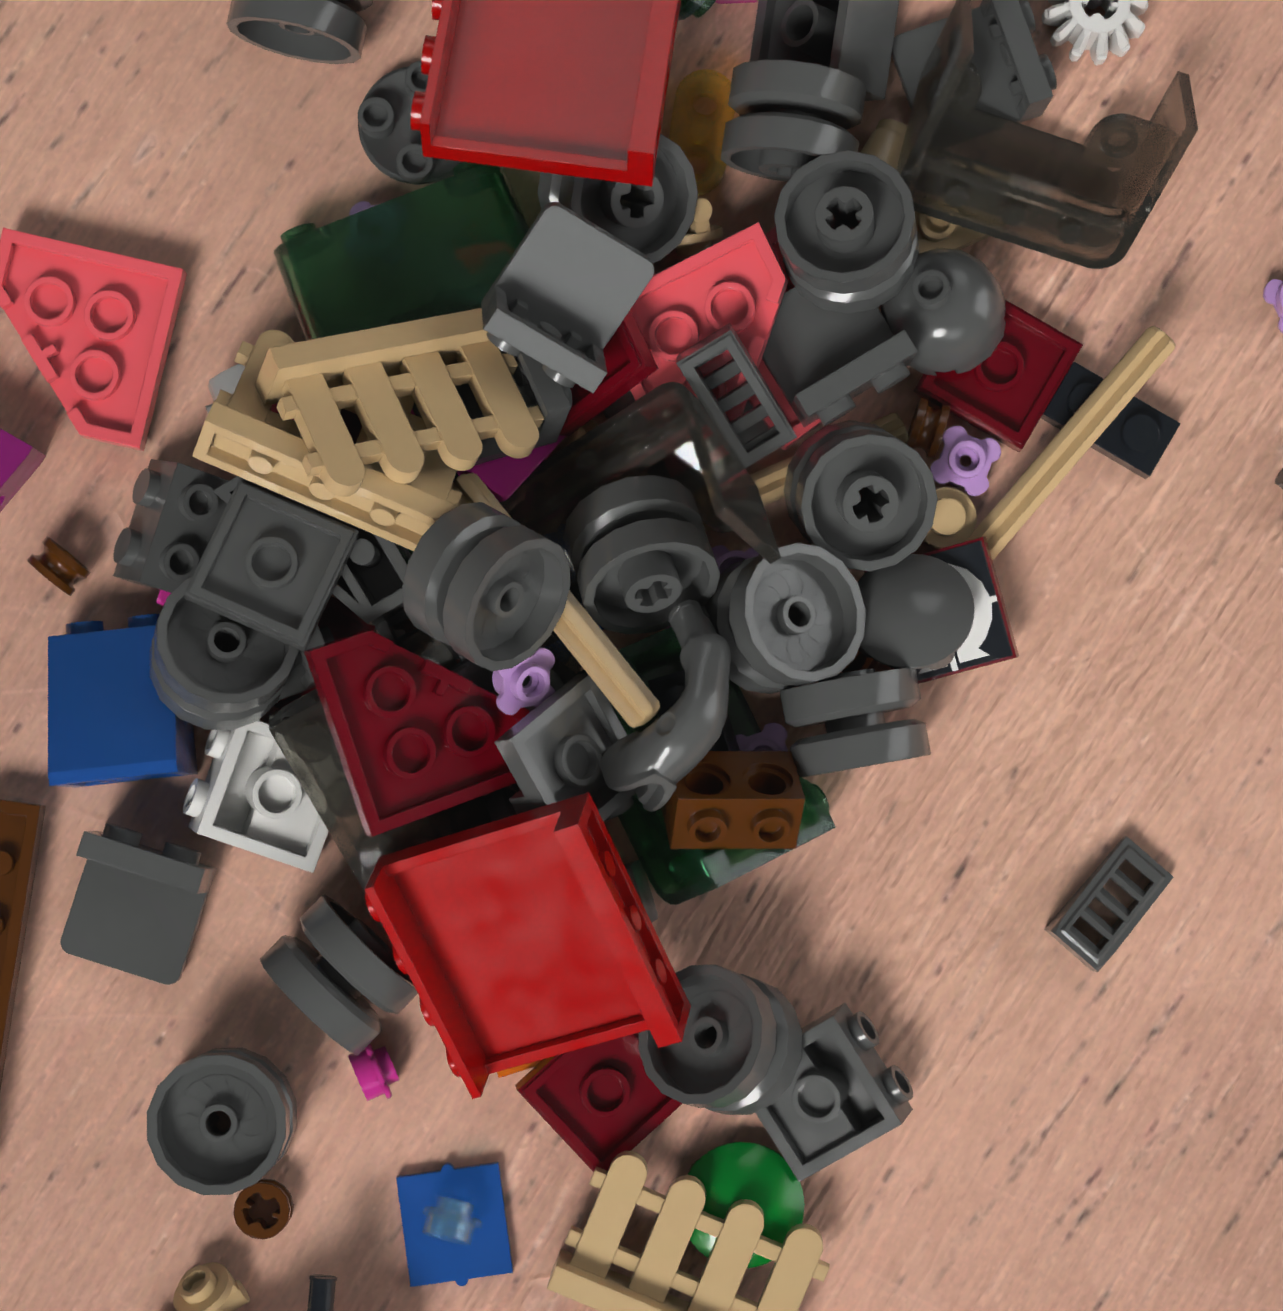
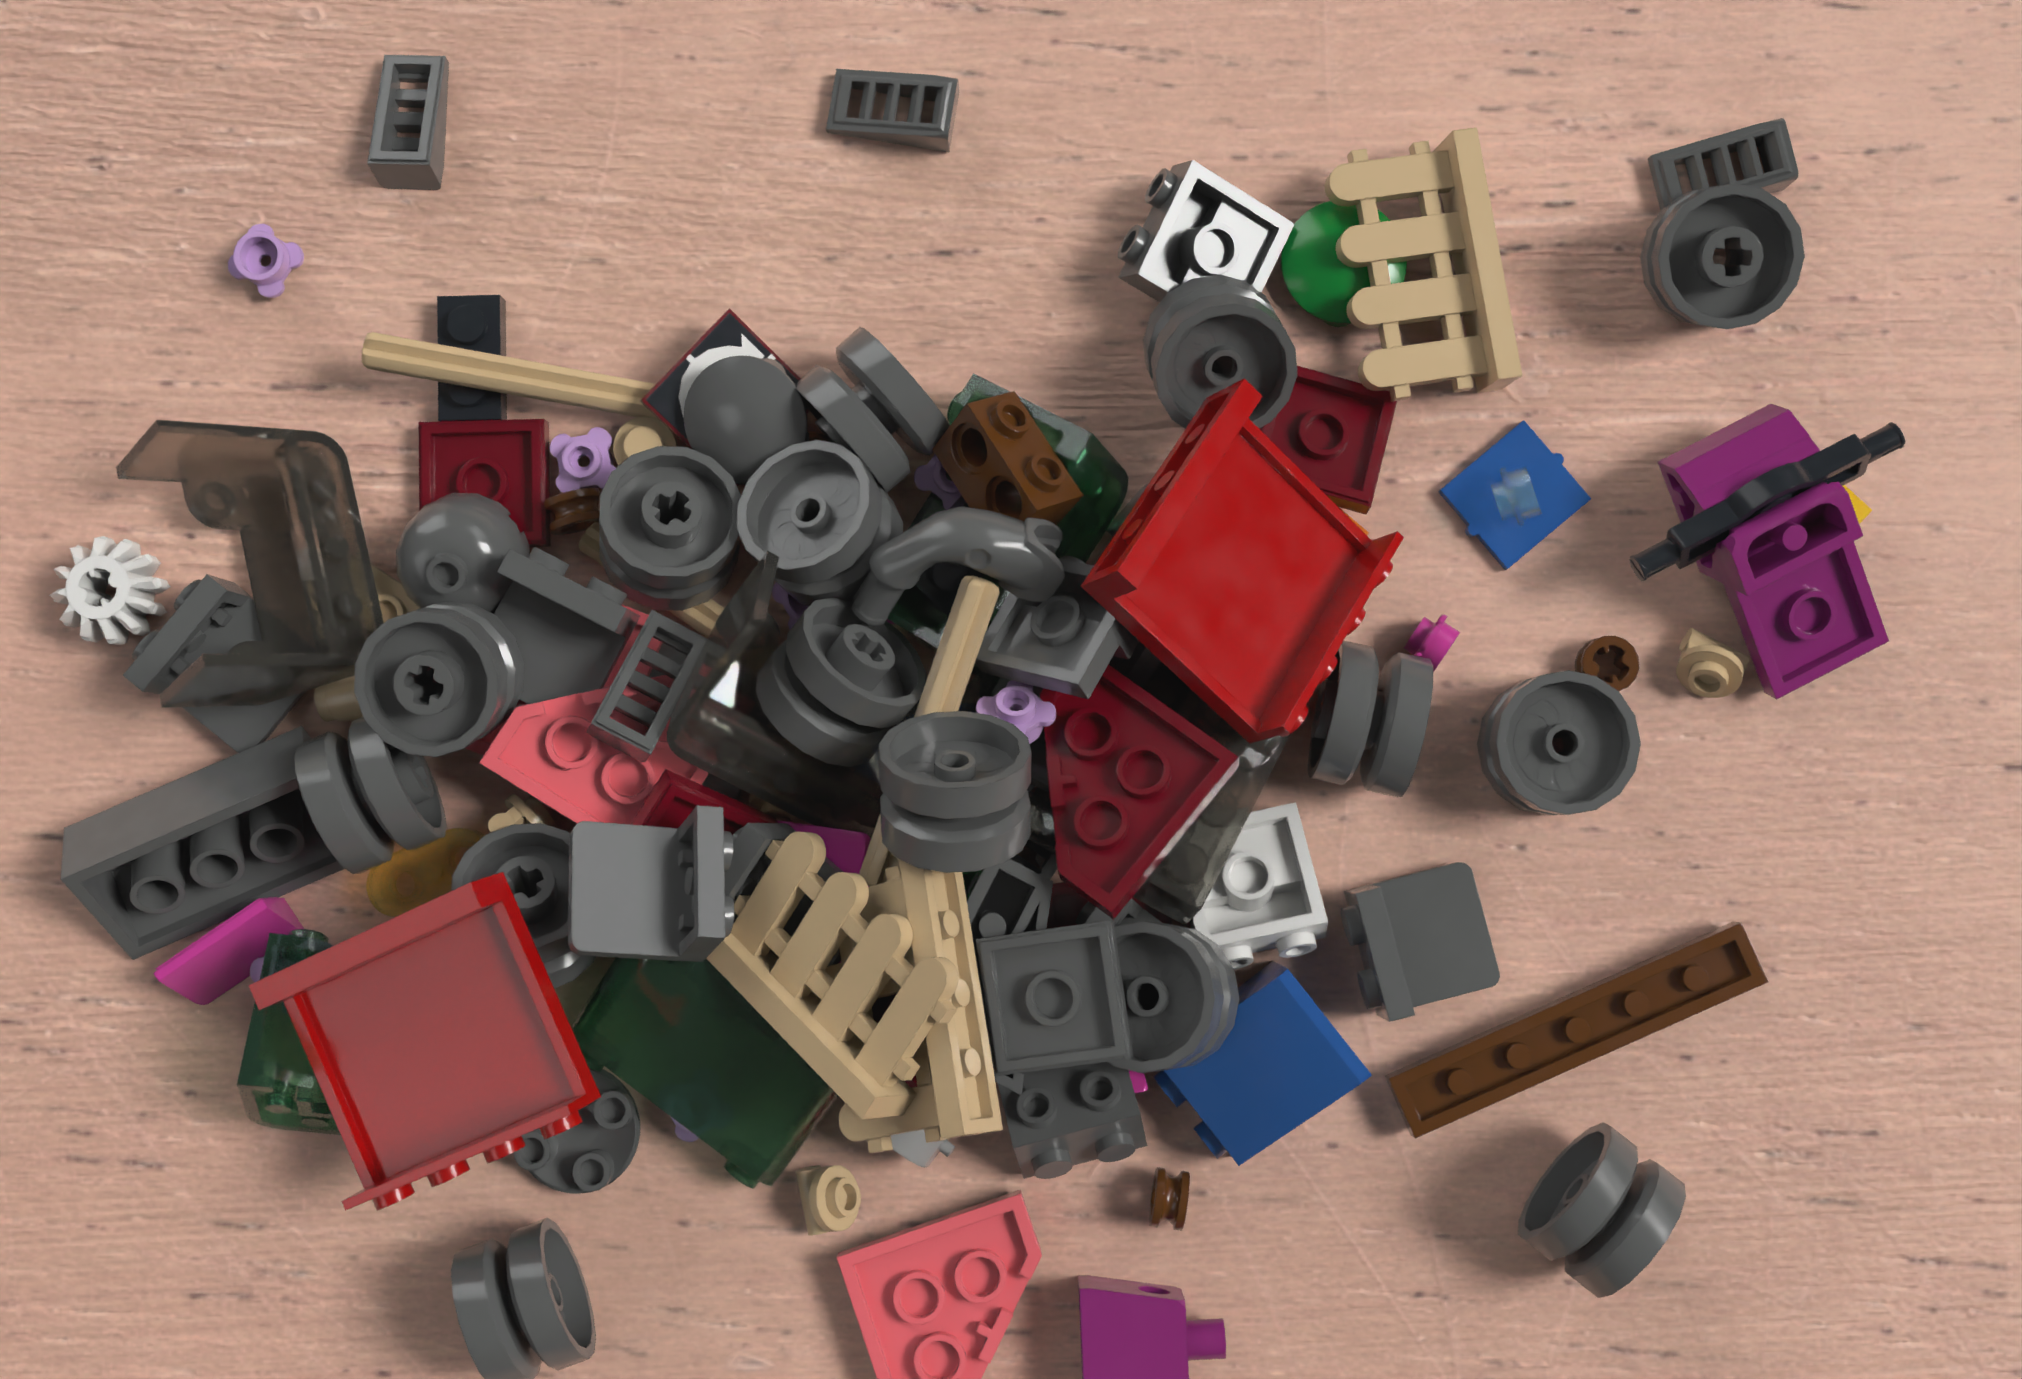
camera: 115 degrees left, 0 degrees up
(235, 292) = (828, 1198): none -> tan plate

